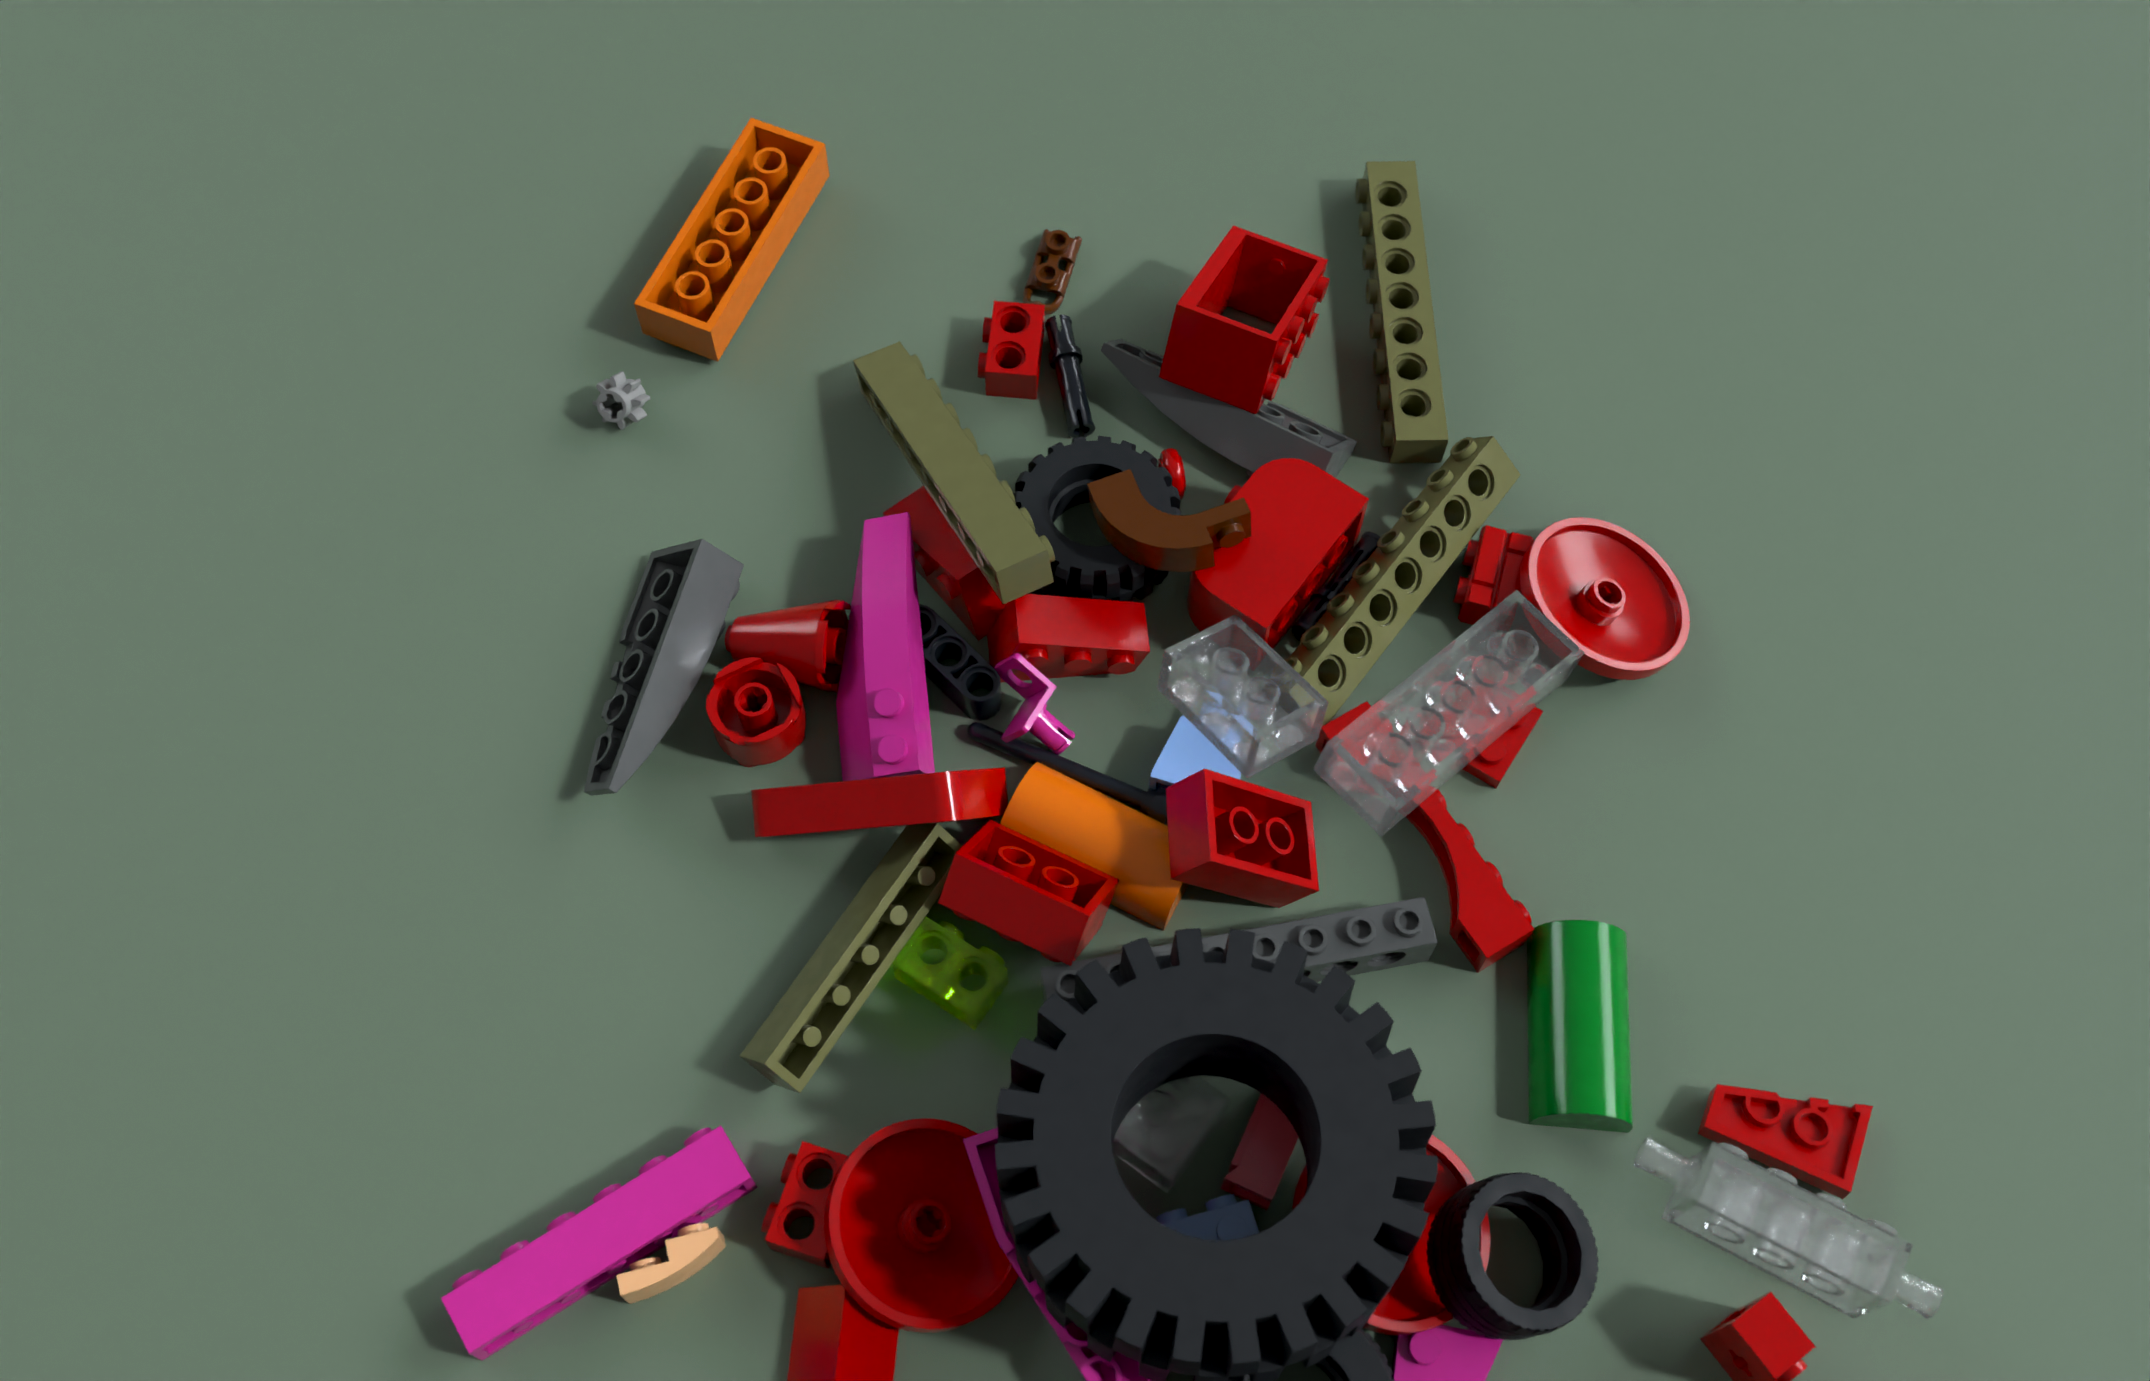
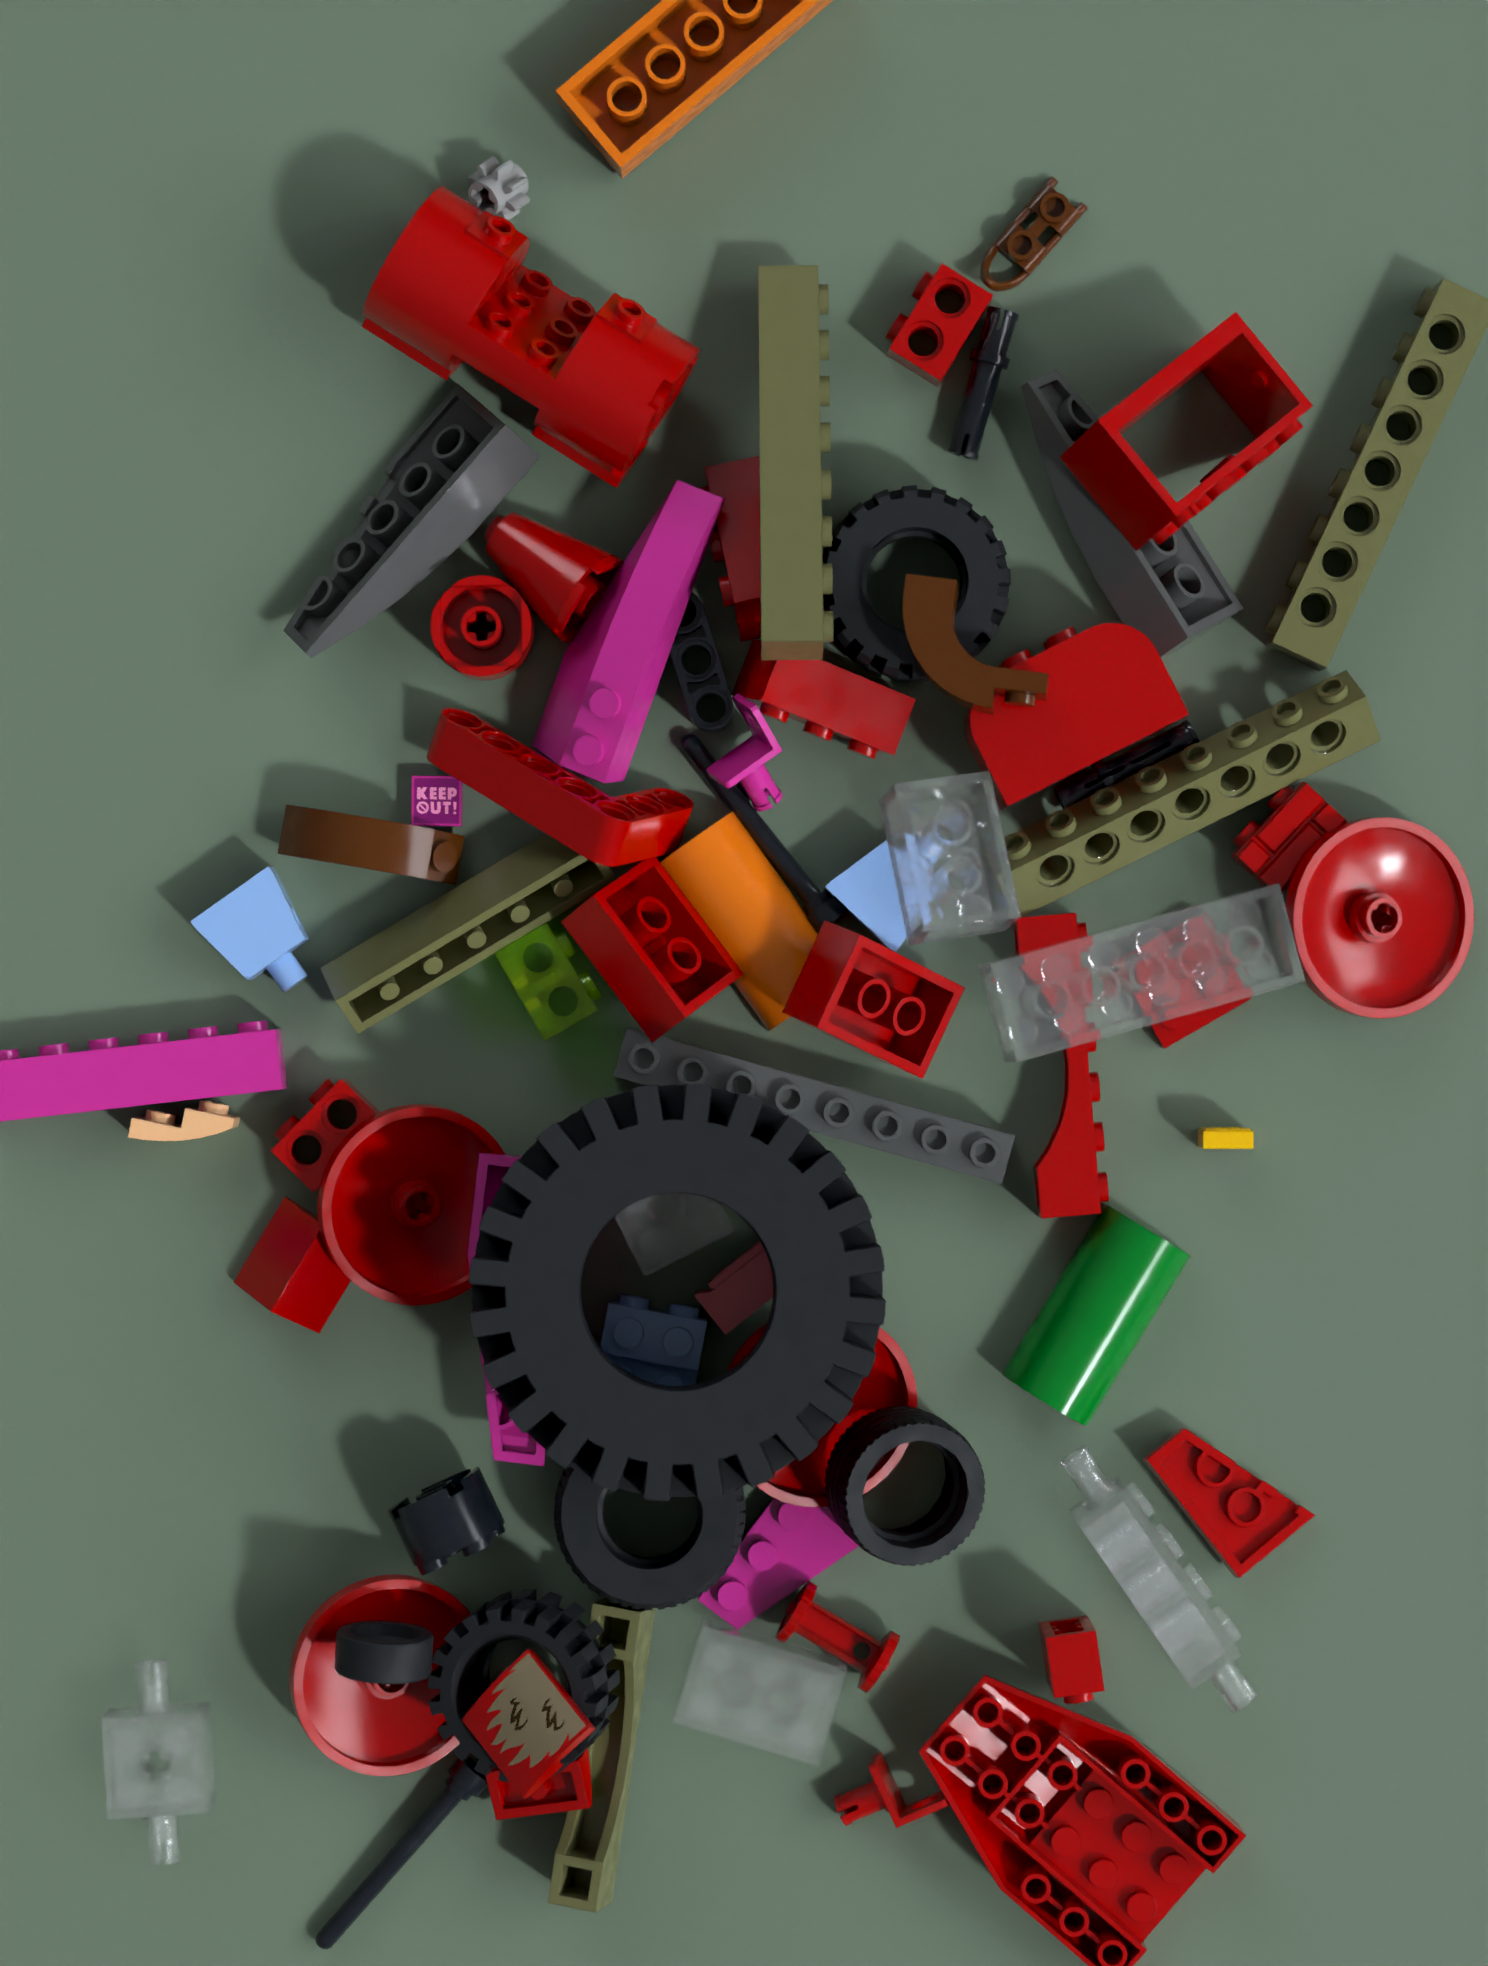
camera: 30 degrees right, 25 degrees up
(611, 465) = (462, 296): none -> red cylinder
(665, 1052) = (257, 929): none -> light blue torso
(733, 920) = (370, 844): none -> reddish brown arch
(782, 873) = (436, 801): none -> tile
(1173, 463) = (1027, 556): red piece -> none
(1593, 825) = (1225, 1138): none -> yellow tile

